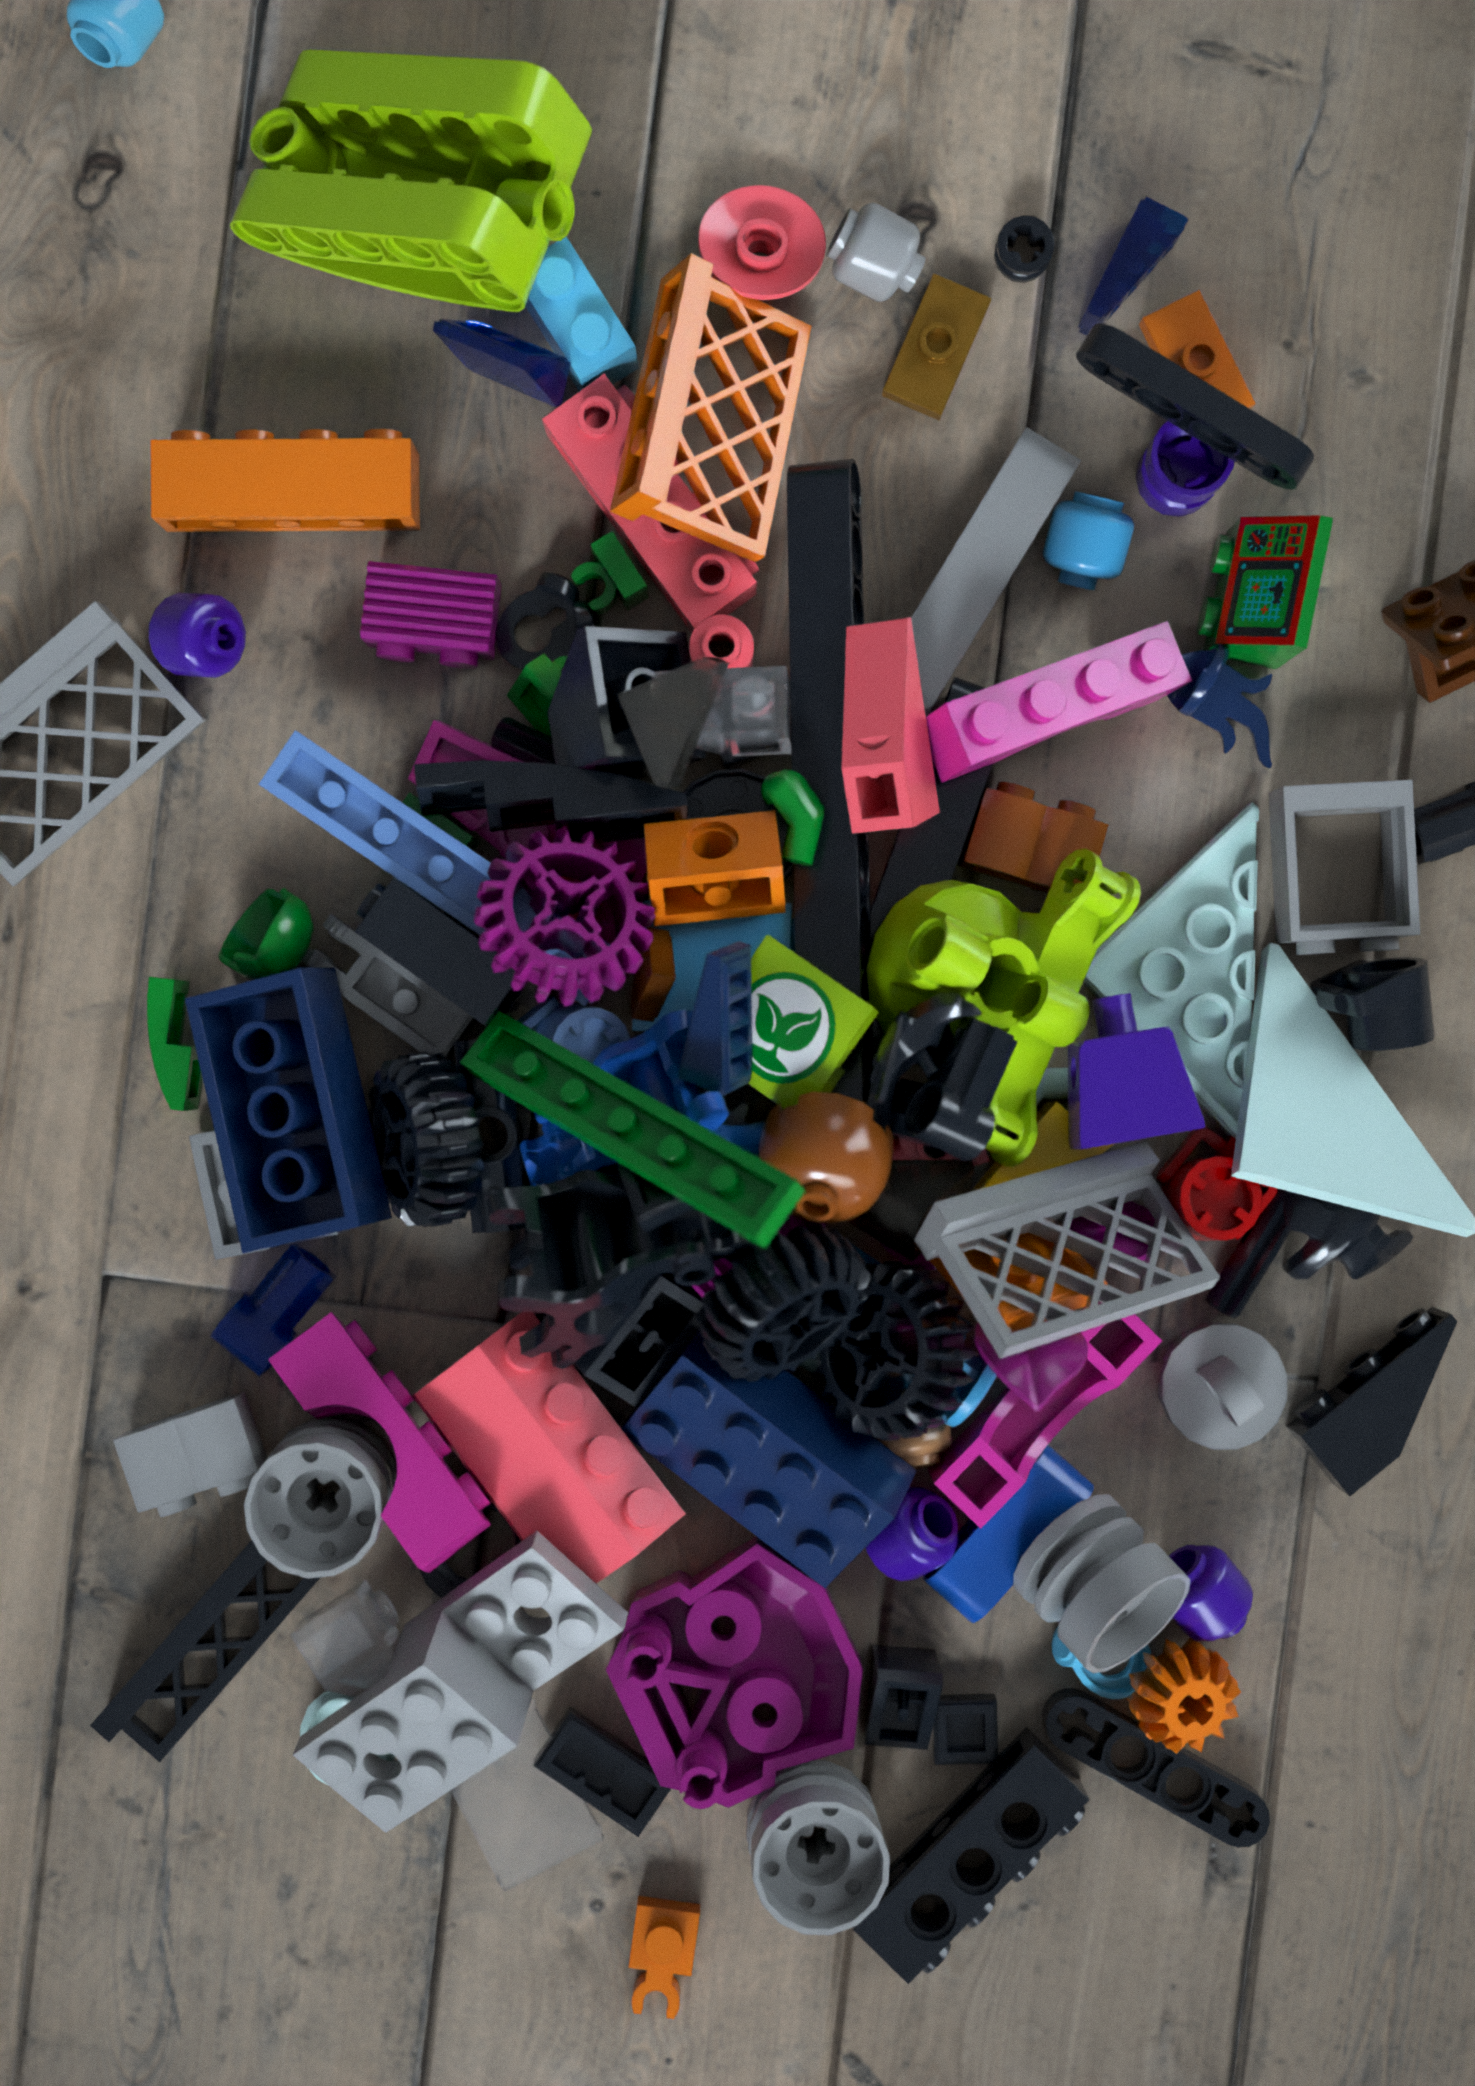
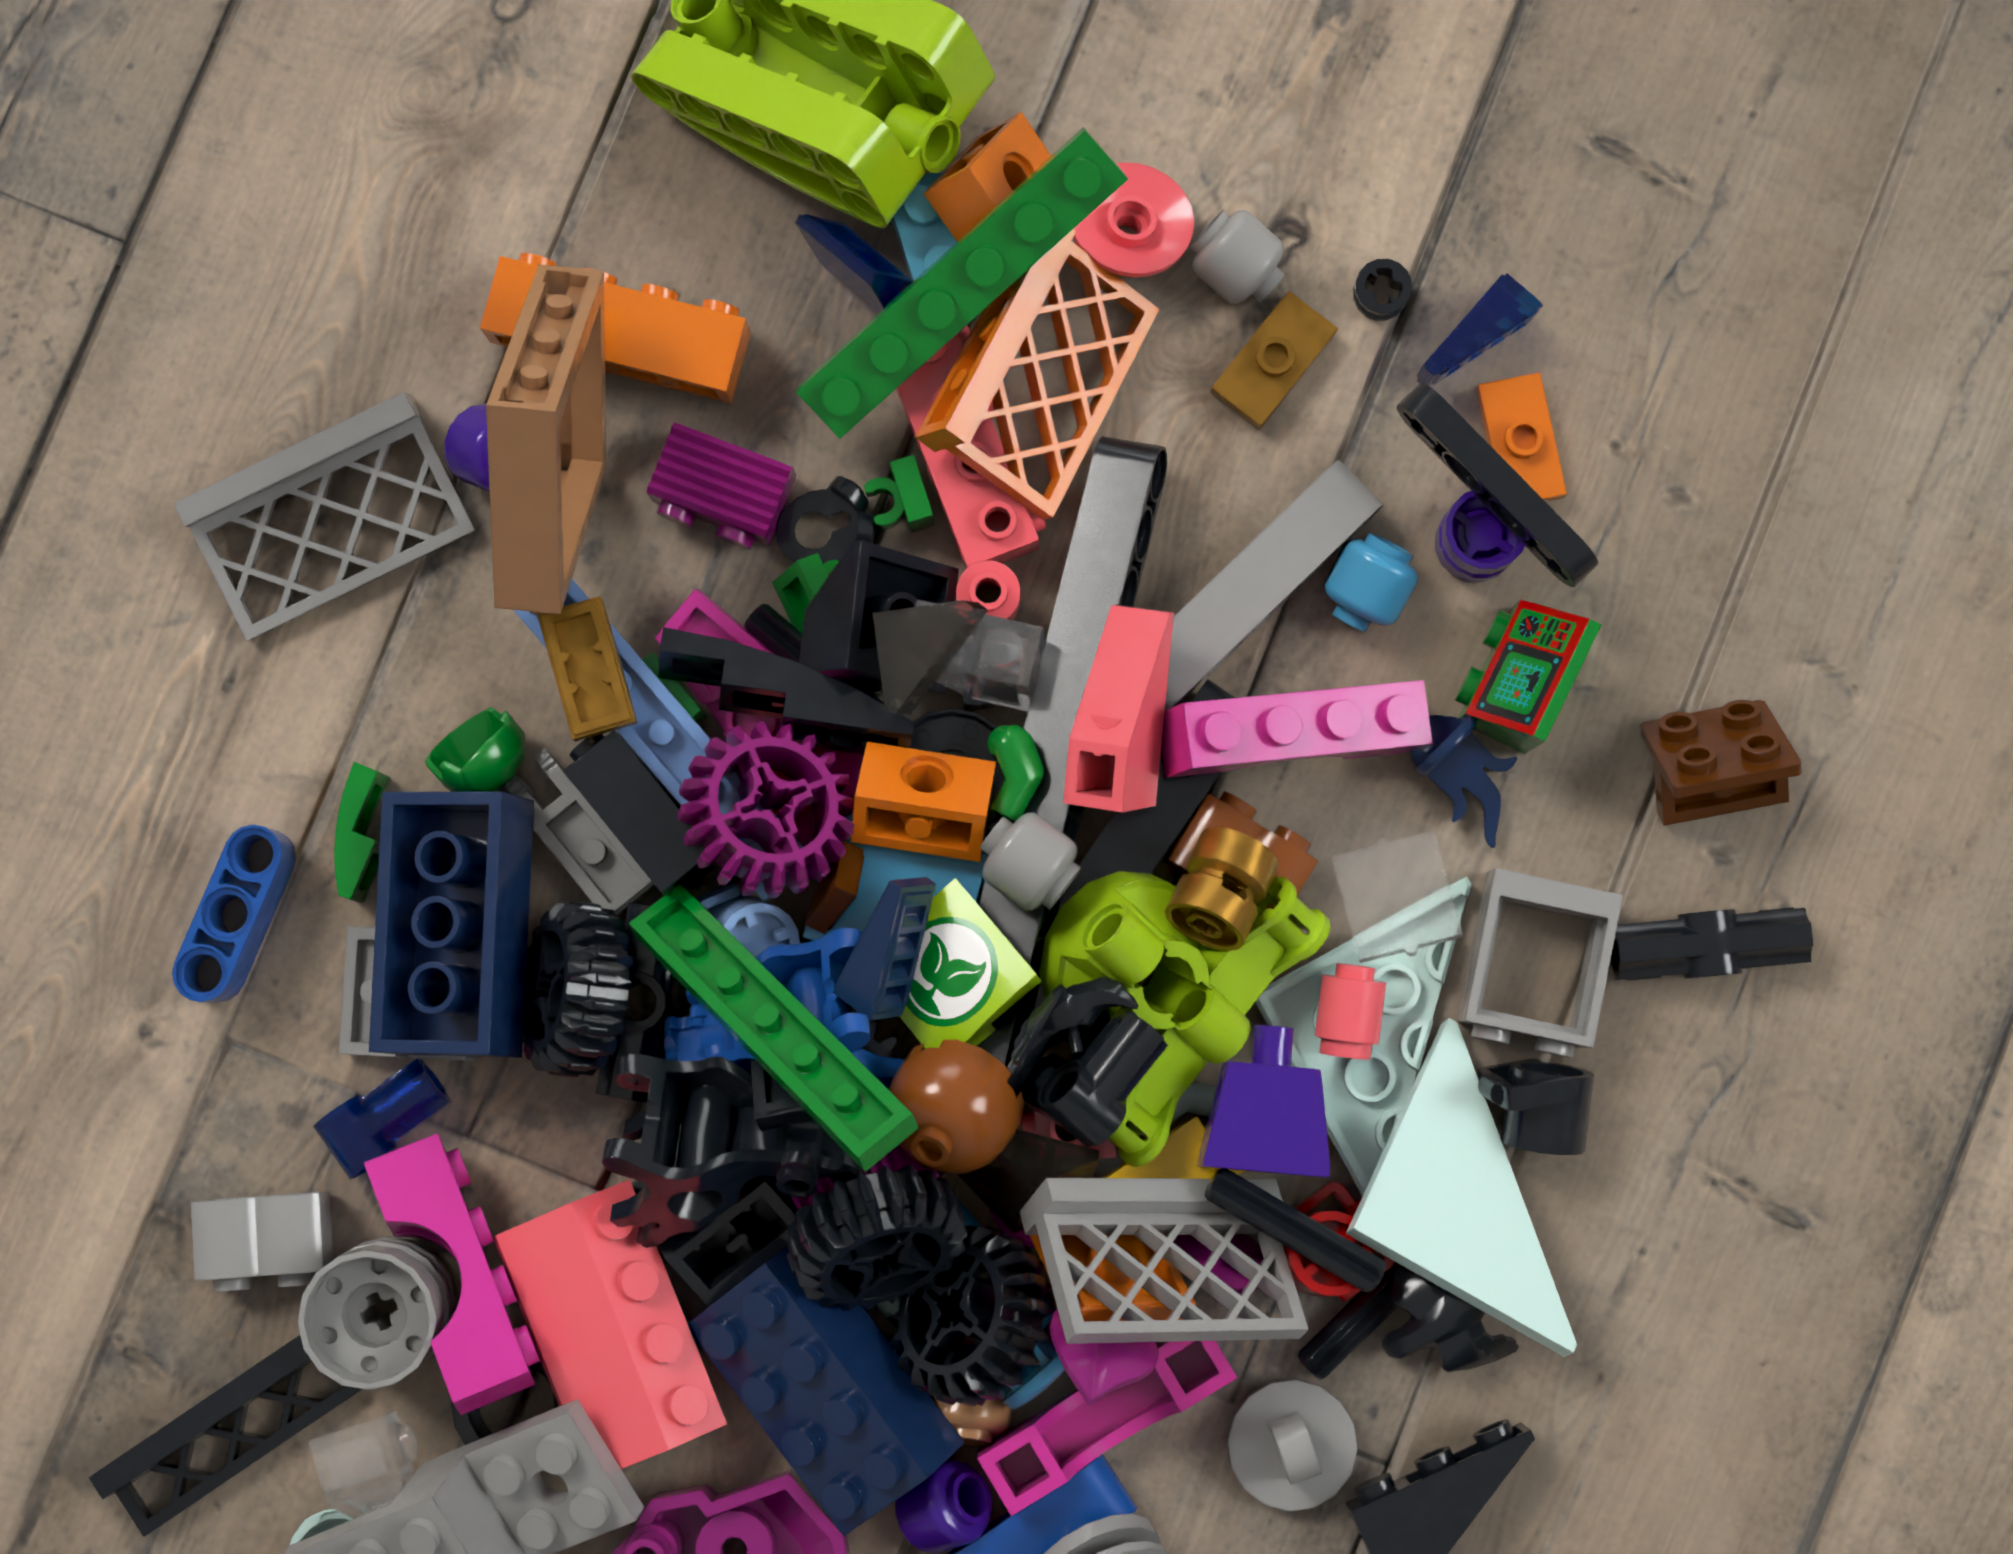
camera: 20 degrees right, 5 degrees down
(54, 1176) = (207, 931): none -> blue beam
(236, 593) = (545, 418): none -> medium nougat window
(350, 824) = (587, 669): none -> pearl gold plate
(616, 341) = (962, 283): none -> green plate
(620, 241) = (986, 174): none -> orange brick
(835, 898) = (1029, 861): none -> light grey head
(1028, 875) = (1223, 885): none -> pearl gold wheel
(1177, 962) = (1350, 1012): none -> coral brick
(1183, 1186) = (1295, 1230): none -> black axle
(1191, 839) = (1397, 897): none -> clear piece

